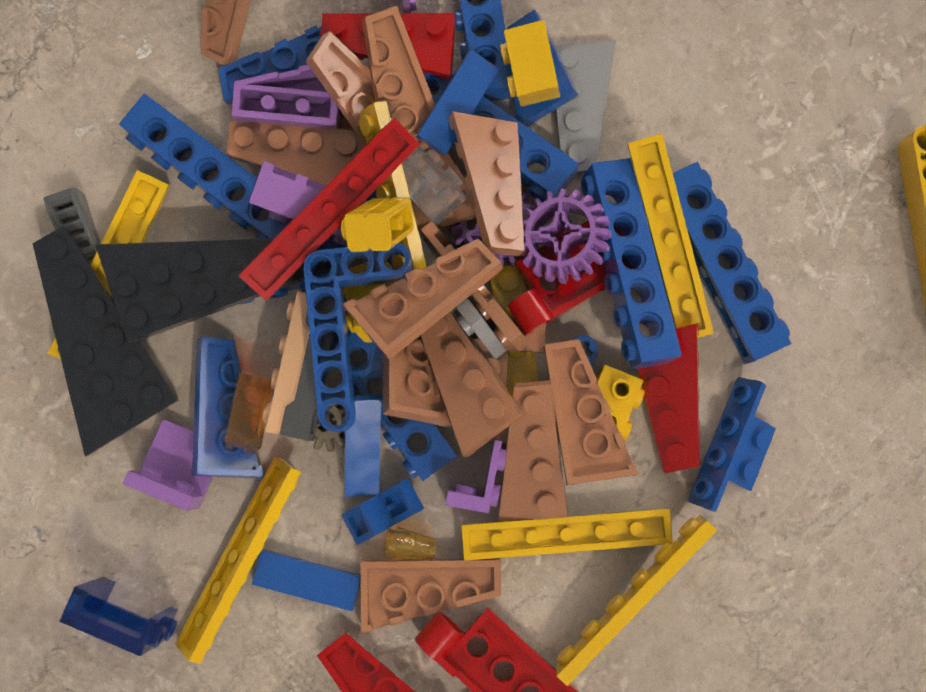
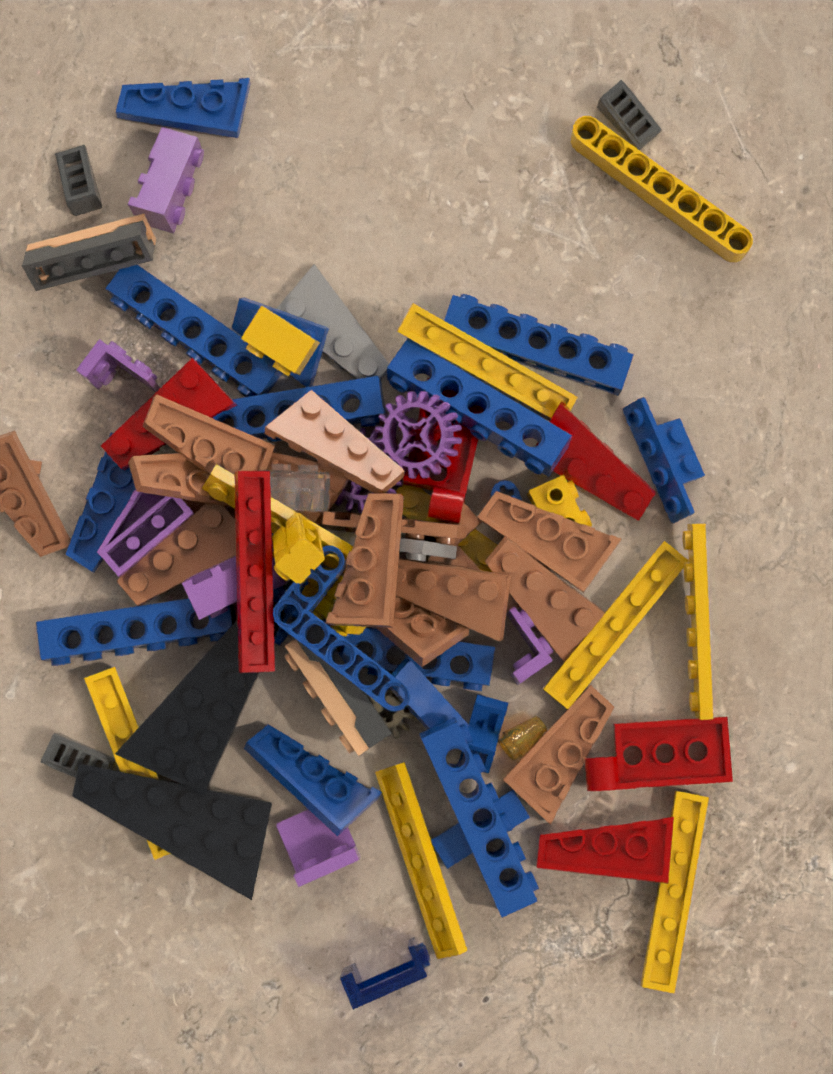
camera: 40 degrees left, 0 degrees up
(246, 415) = (332, 758): clear orange hinge -> none
(274, 653) = (507, 895): none -> blue brick
(460, 96) = (256, 413): blue tile -> none

